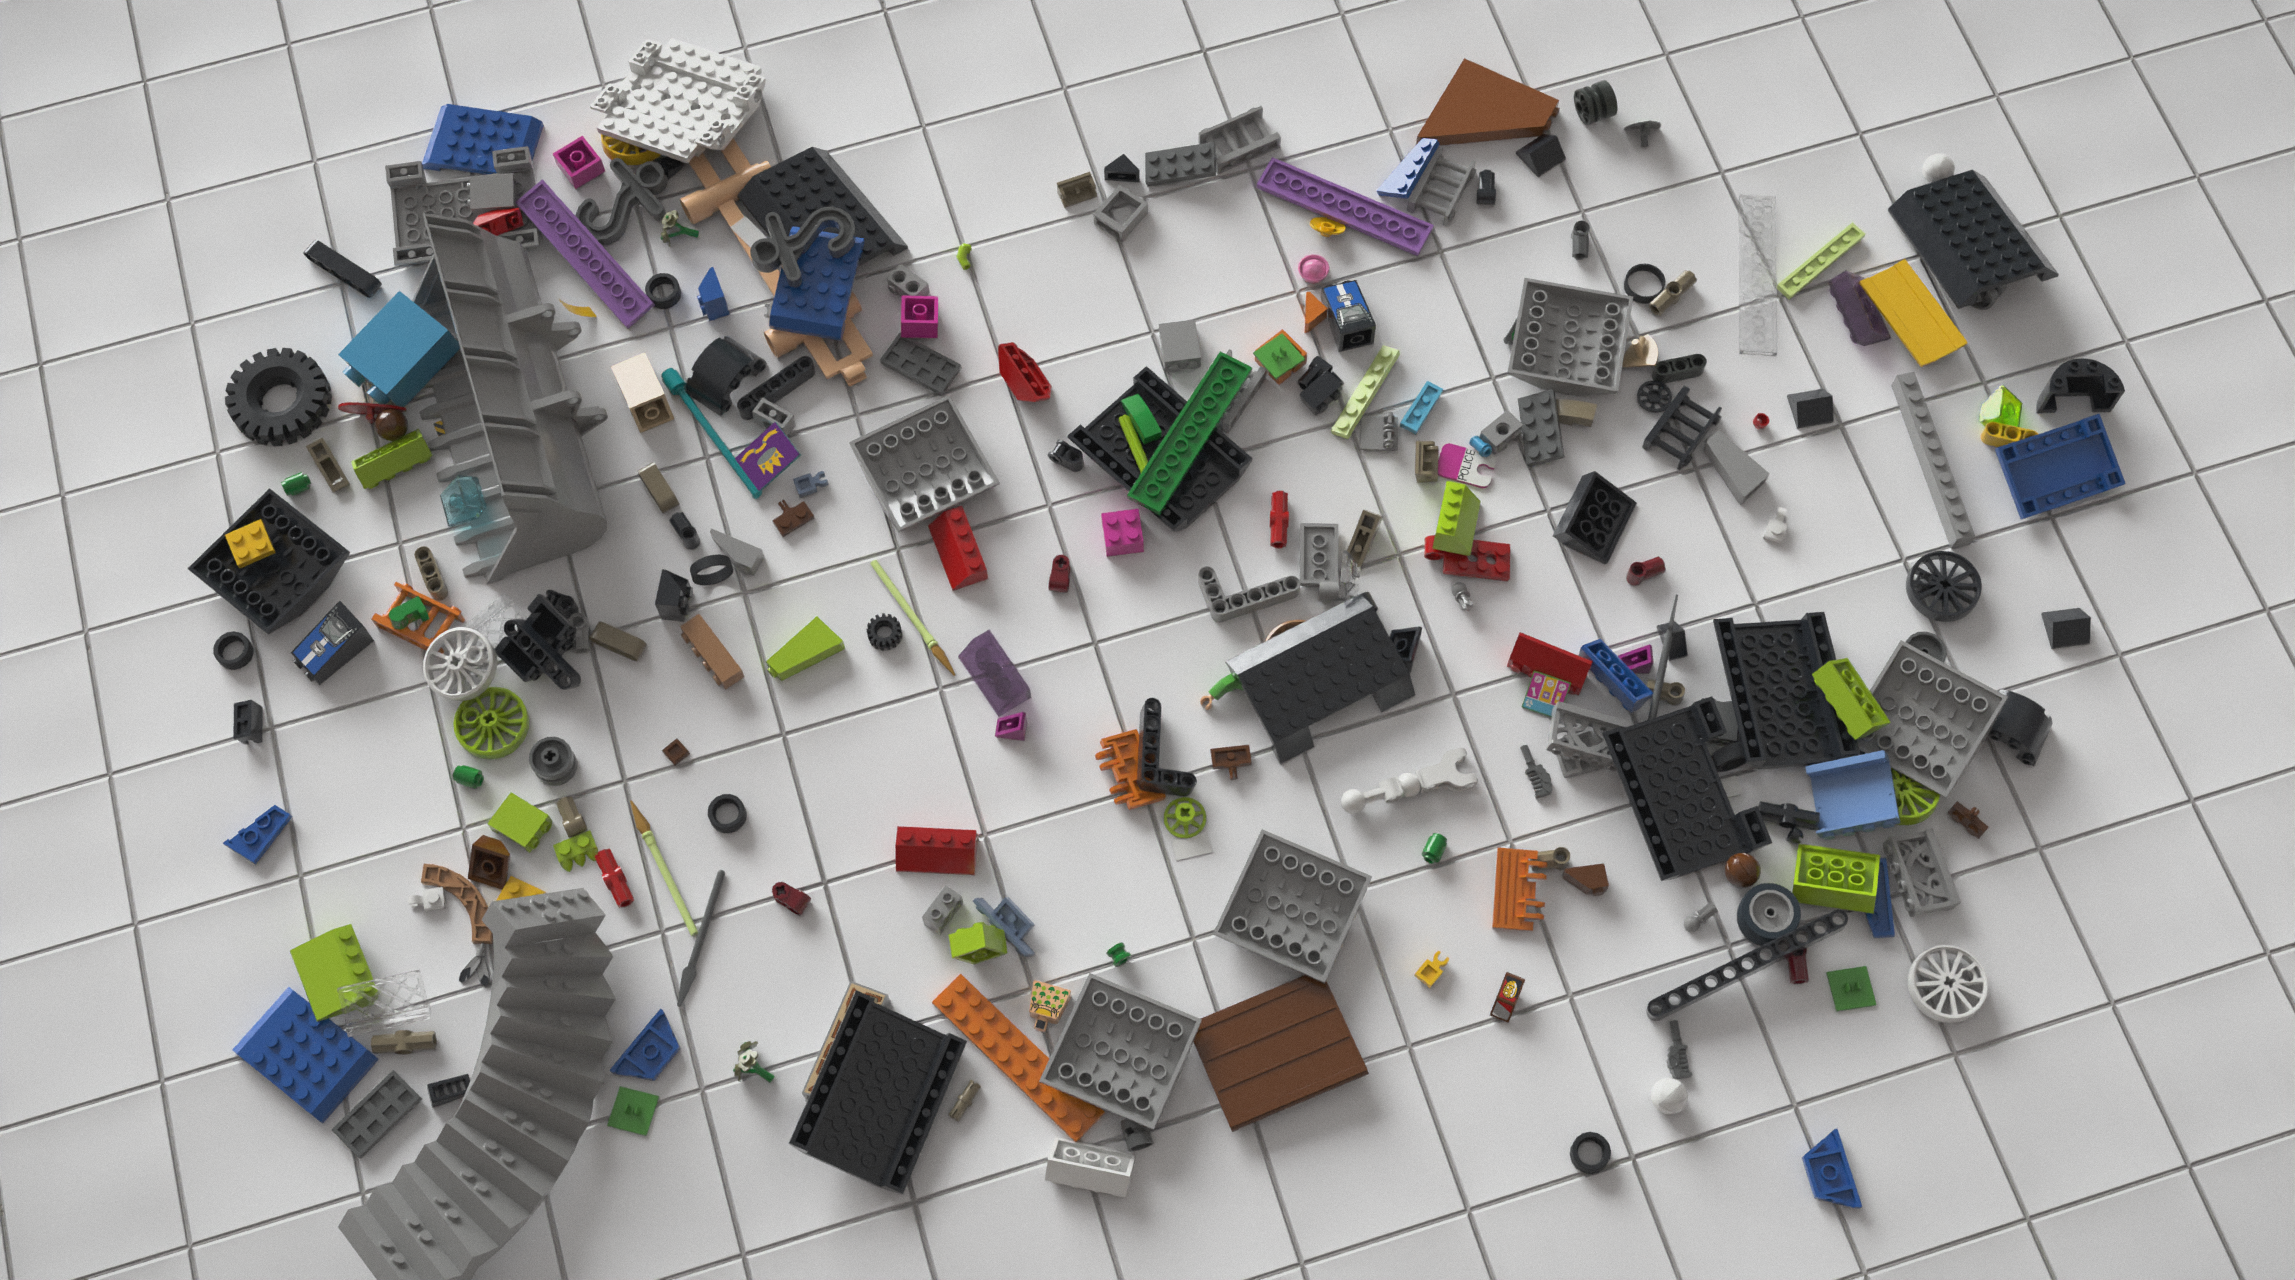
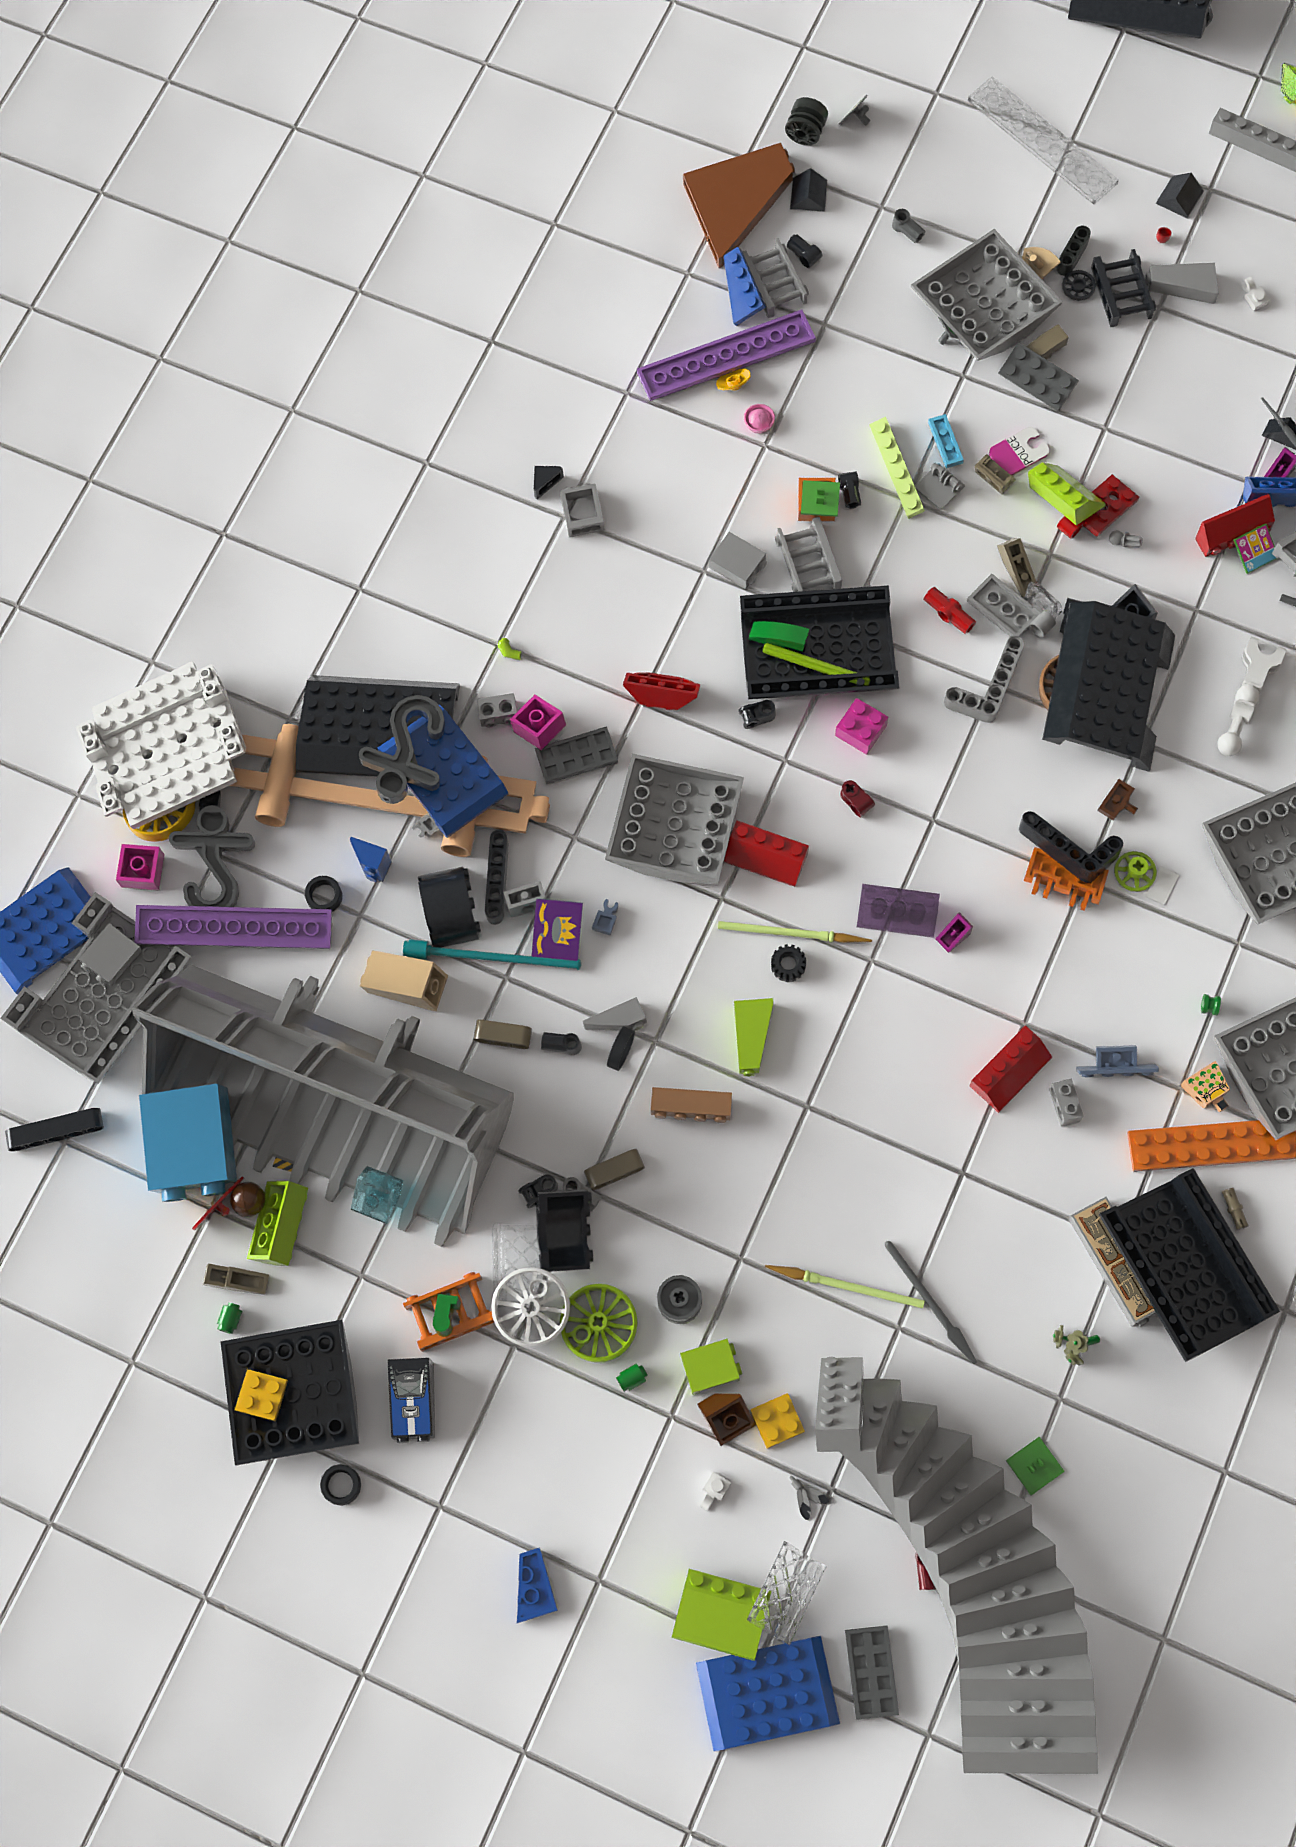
camera: 45 degrees left, 5 degrees up
(248, 722) = (420, 1521): black hinge -> none
(258, 378) = (103, 1252): black tyre -> none
(403, 1042) = (826, 1604): dark tan piece -> none
(436, 579) = (425, 1275): dark tan beam -> none
(443, 1099) = (891, 1615): black slope -> none
(466, 893) = (736, 1456): medium nougat tile -> none
(500, 220) = (141, 970): red slope -> none
(534, 650) = (588, 1240): black beam -> none
(572, 820) = (745, 1323): dark tan piece -> none
(576, 849) = (769, 1341): lime plate -> none
(582, 311) = (283, 970): yellow sticker -> none
(614, 878) = (823, 1329): red piece -> none
(649, 1051) = (997, 1414): blue wing -> none
(669, 222) = (271, 836): plant -> none
(673, 596) = (617, 1096): black slope -> none
(675, 752) = (751, 1199): reddish brown tile -> none
(727, 799) = (841, 1216): black tyre -> none
(747, 231) = (336, 788): white sticker -> none
(792, 517) = (623, 954): reddish brown plate -> none
(793, 900) = (961, 1206): dark red piece -> none
(978, 943) = (1123, 1097): lime brick -> none
(1076, 189) = (530, 524): dark tan hinge -> none
(1180, 164) = (581, 434): dark grey plate -> none
(1189, 433) = (830, 610): green plate -> none
(1222, 687) = (1055, 759): bright green arm -> none
(1240, 155) = (612, 389): light grey fence -> none
(1314, 312) = (795, 447): orange slope -> none
(1322, 392) = (872, 496): black hinge -> none
(1348, 315) = (823, 425): slope -> none
(1483, 448) = (1015, 428): dark azure pin -> none
(1505, 423) = (1015, 415): light grey brick -> none
(1595, 517) = (1142, 402): black slope -> none
(1645, 570) = (1214, 404): dark red piece -> none
(1649, 268) = (981, 200): black tyre -> none
(1678, 286) = (1009, 210): dark tan piece -> none
(1820, 261) = (1071, 92): yellowish green plate -> none
(1858, 310) = (1132, 101): clear purple slope -> none
(1913, 313) = (1171, 69): yellow hinge -> none

